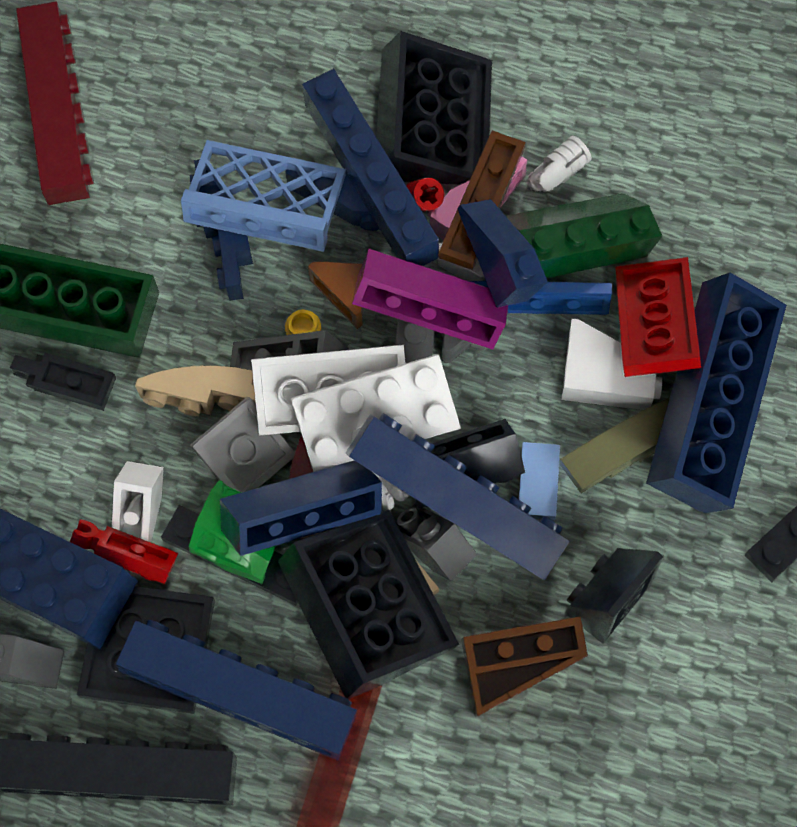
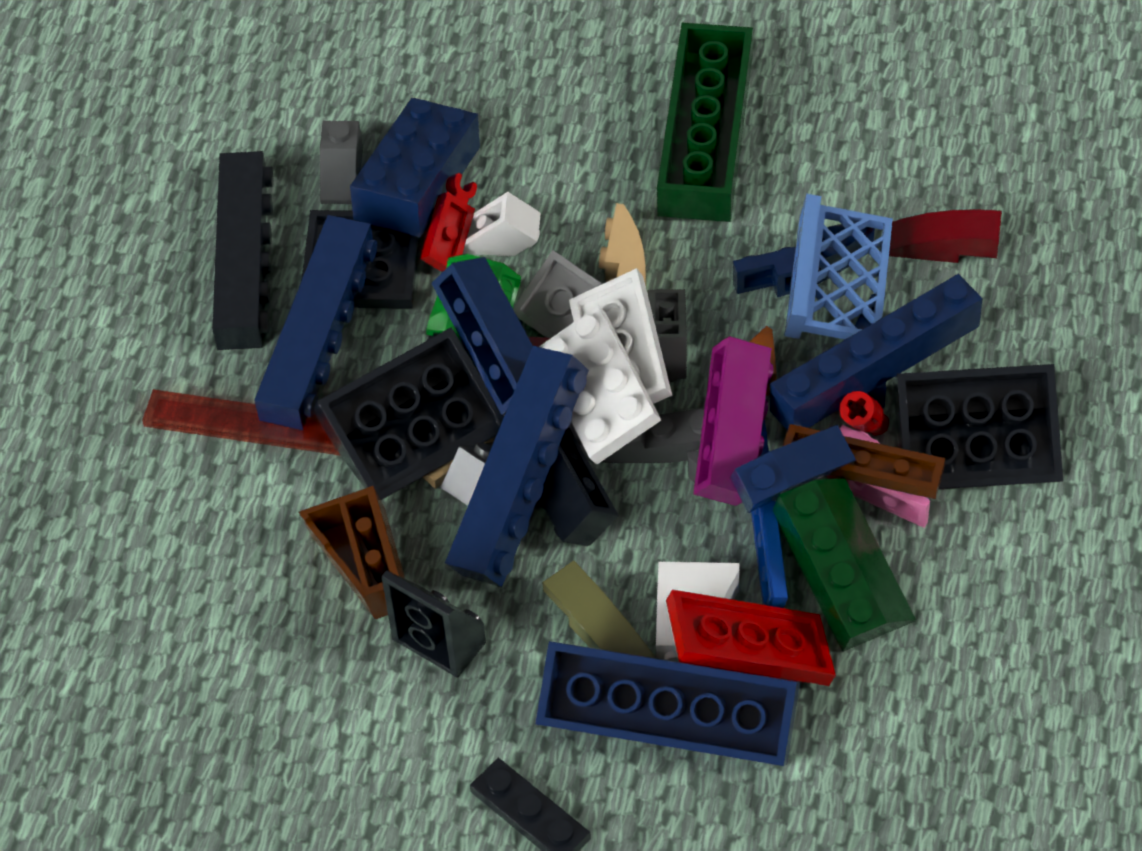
camera: 85 degrees right, 15 degrees down
(53, 104) = (926, 101): dark red brick -> none
(65, 379) = (623, 160): black hinge -> none
(217, 104) = (947, 235): none -> dark red slope
(302, 322) = (704, 339): yellow plate -> none
(540, 482) = (543, 561): light blue tile -> none
(560, 165) = (935, 551): white hinge -> none

